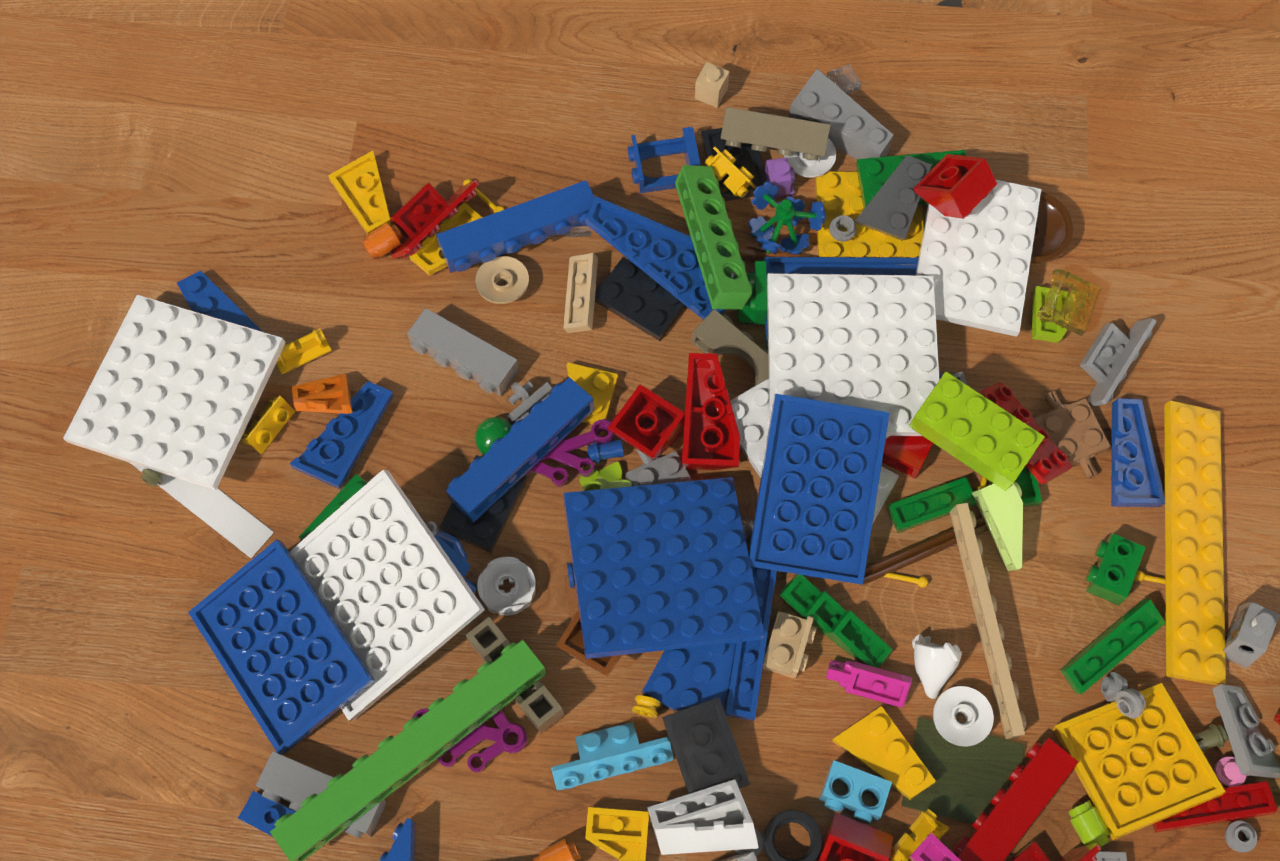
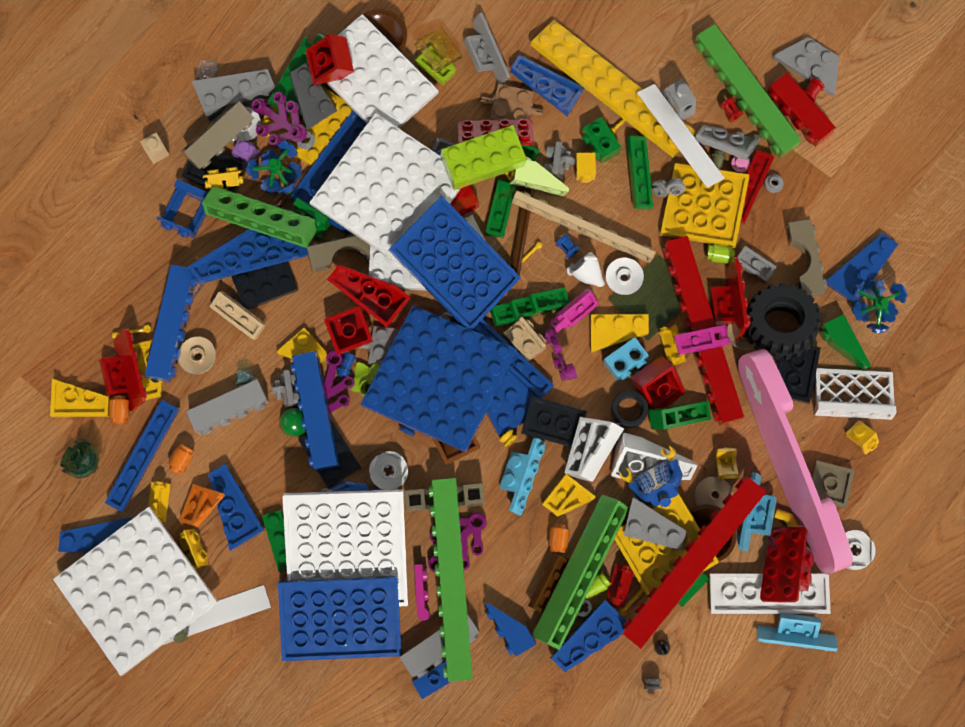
camera: 55 degrees left, 10 degrees up
(295, 237) = (80, 460): none -> clear green cylinder
(344, 299) = (142, 456): none -> blue plate
(366, 340) = (180, 459): none -> orange brick
(374, 727) = (421, 593): none -> dark pink plate
(512, 346) = (244, 376): none -> clear light blue plate
(812, 675) = (568, 371): none -> magenta plant
(844, 209) = (262, 107): none -> magenta plant
(947, 617) = (567, 246): none -> blue bush
(1048, 536) = (561, 161): none -> light grey hips
(1065, 571) = (585, 167): none -> yellow brick
(1202, 667) = (680, 135): none -> white sticker

